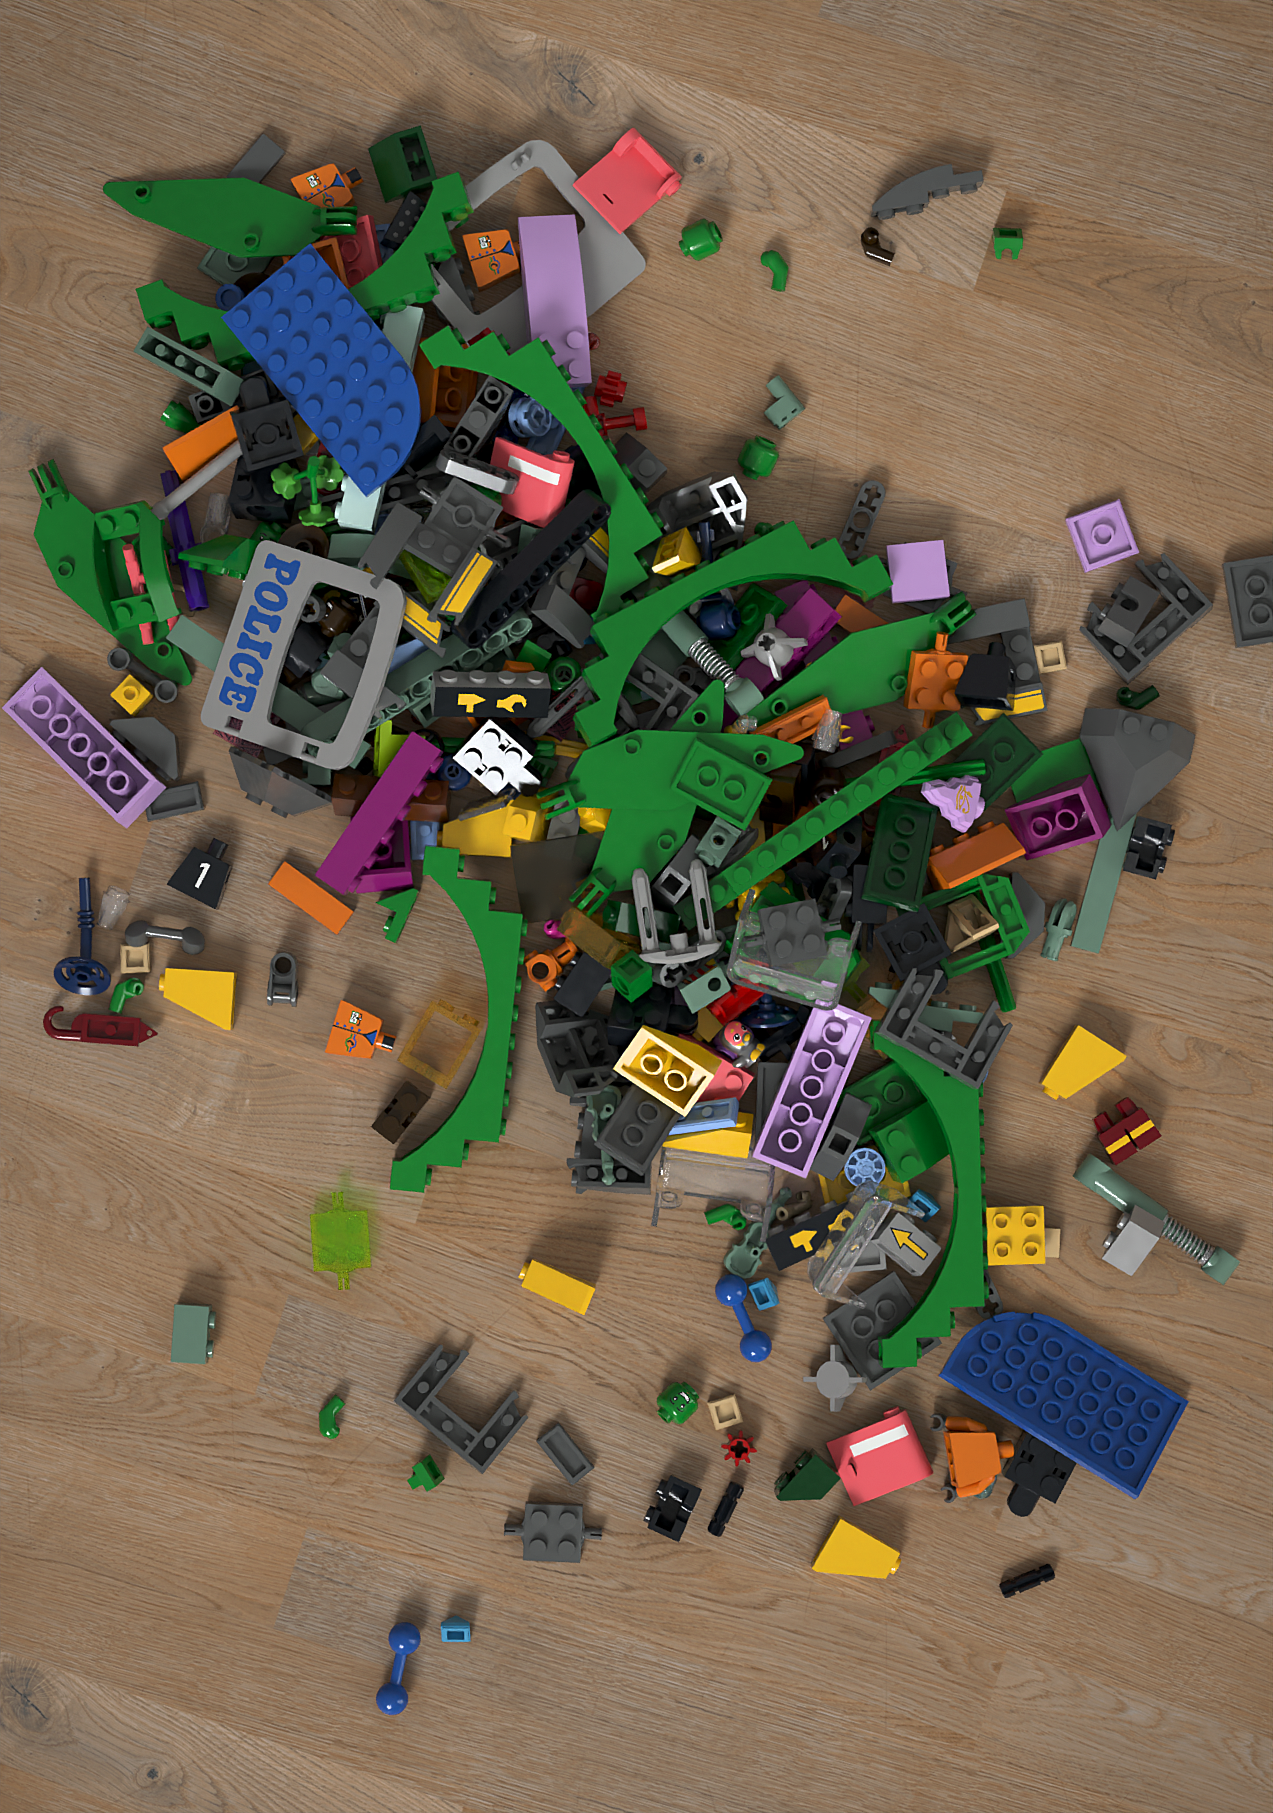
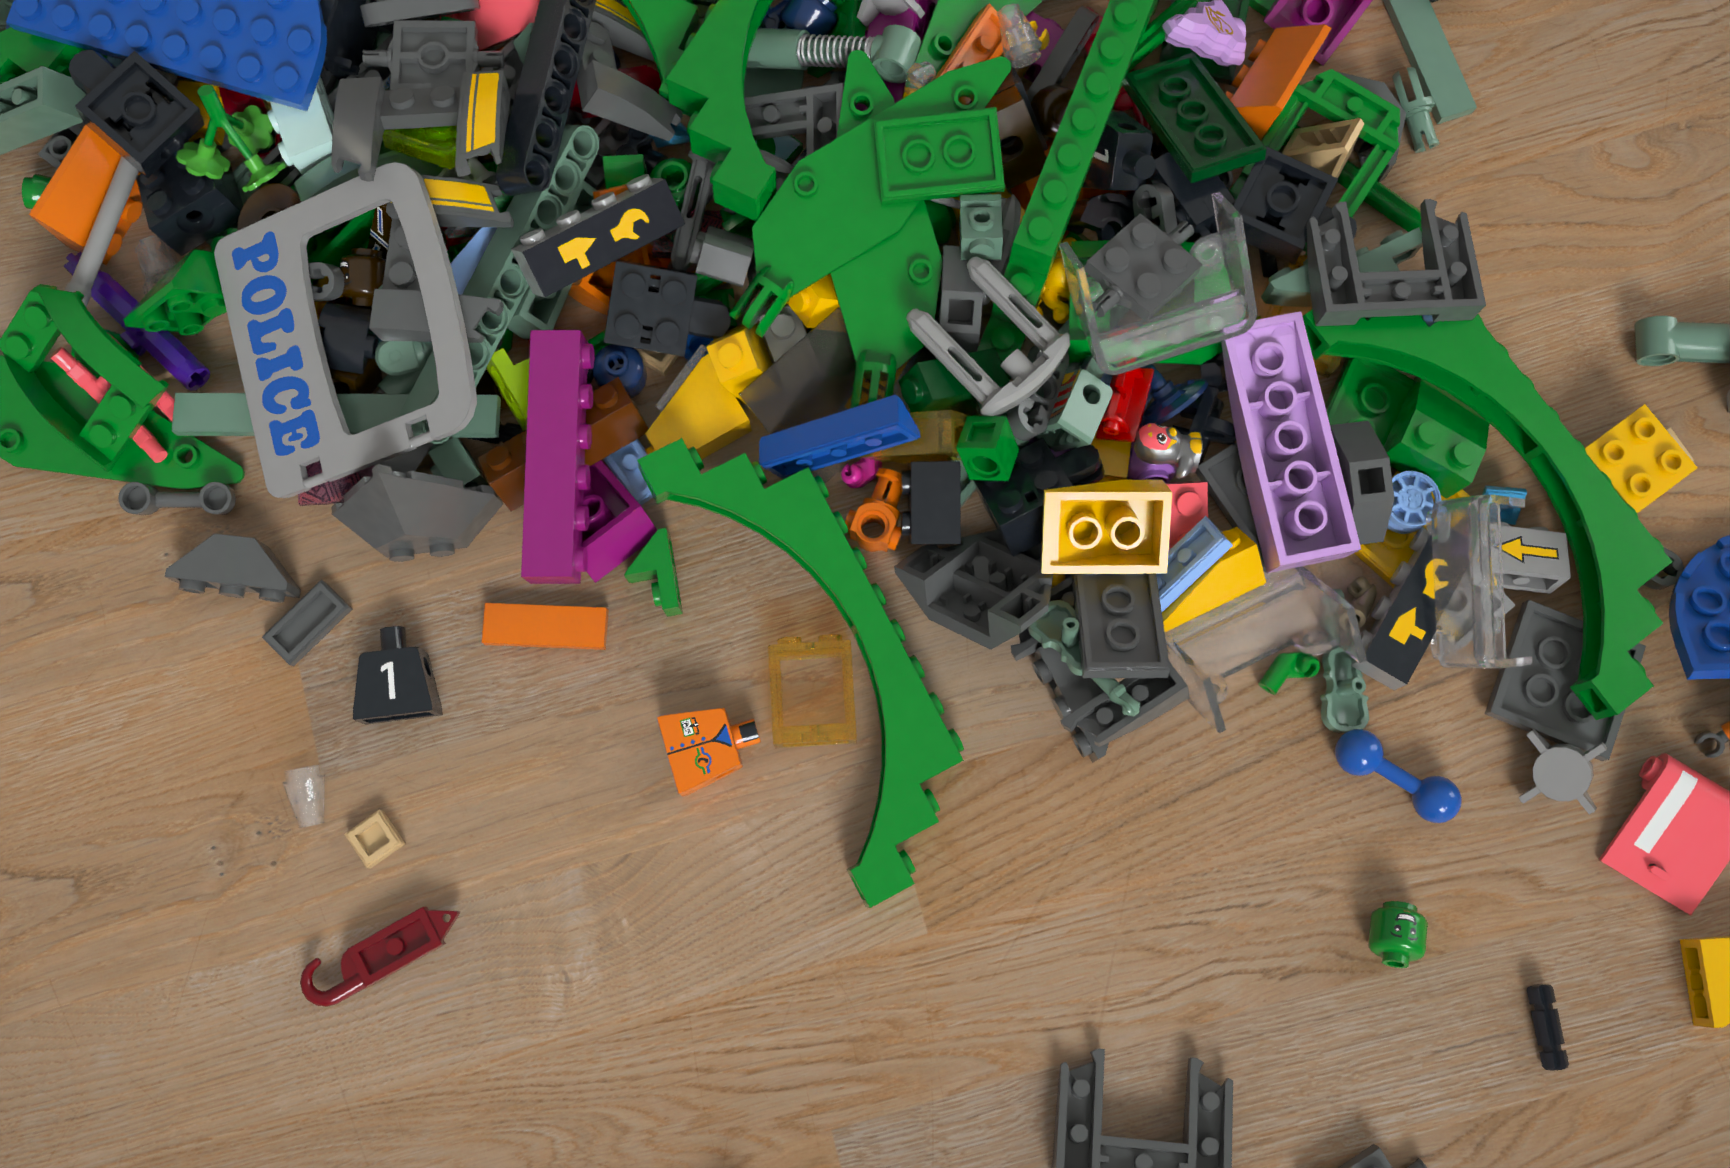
camera: 30 degrees left, 10 degrees down
(84, 748) = (157, 626): lavender slope -> none
(84, 964) = (314, 881): dark blue dish -> none
(123, 991) = (384, 889): green arm -> none
(132, 695) = (176, 527): yellow brick -> none
(139, 931) = (429, 768): dark grey bar -> none
(203, 993) = (482, 823): yellow slope -> none
(283, 982) = (573, 745): dark grey piece -> none
(340, 1240) = (851, 1016): clear neon green plate -> none
(405, 1101) = (818, 788): dark brown brick -> none
(548, 910) = (838, 437): none -> blue slope
(557, 1285) = (1156, 887): yellow slope -> none
(558, 751) = (722, 255): none -> dark grey brick
(565, 1453) = (1307, 1095): dark grey tile -> none
(672, 1508) = (1488, 1071): black cylinder -> none
(725, 1411) = (1457, 906): tan tile -> none
(733, 1442) = (1519, 944): red gear -> none
(764, 1293) = (1400, 731): dark azure slope -> none
(808, 1480) = (1625, 918): dark green slope -> none
(1079, 1063) = (1548, 232): yellow slope -> none
(1115, 1139) = (1660, 273): dark red hips -> none

